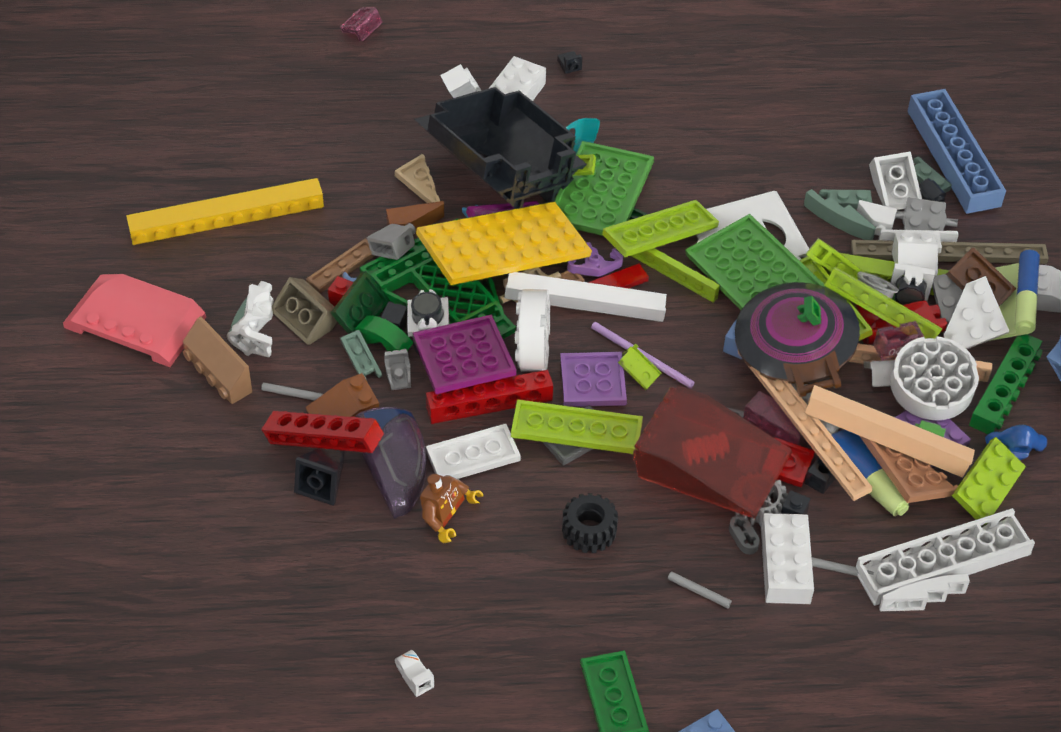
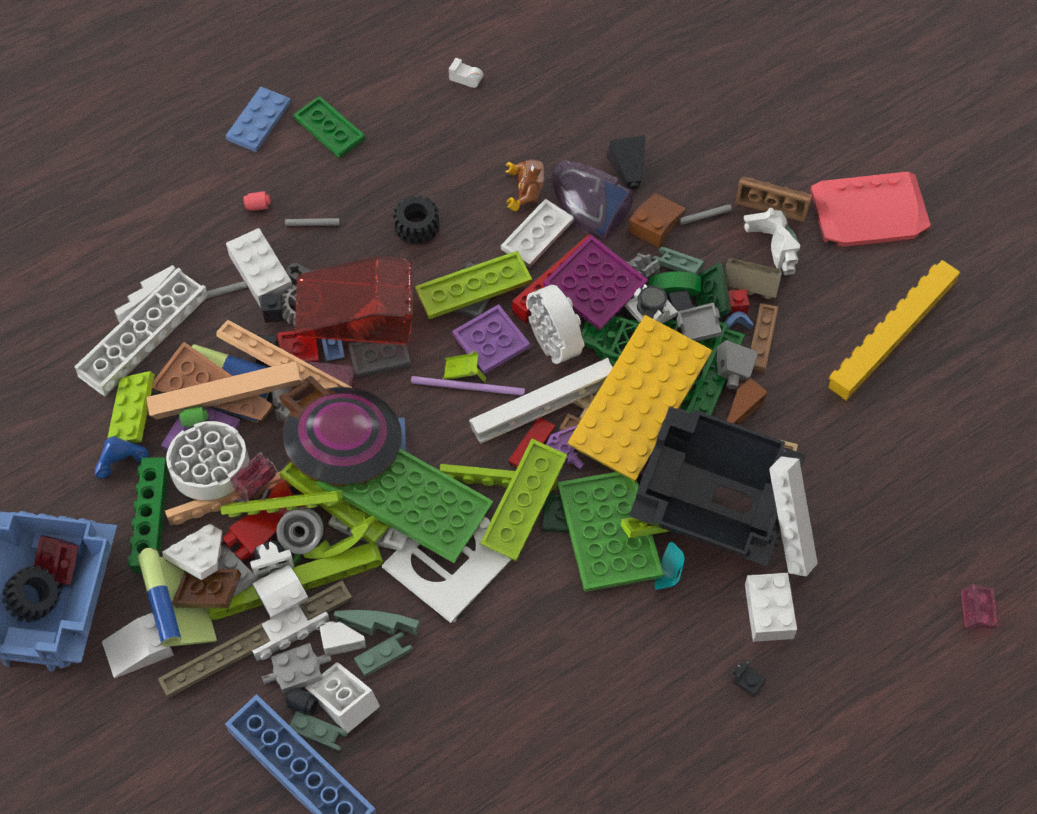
camera: 150 degrees right, 10 degrees up
(323, 431) = (646, 168): red brick -> none
(396, 281) = (700, 322): none -> light grey piece
(749, 639) = (257, 201): none -> coral brick
(811, 311) = (331, 424): green tile -> none

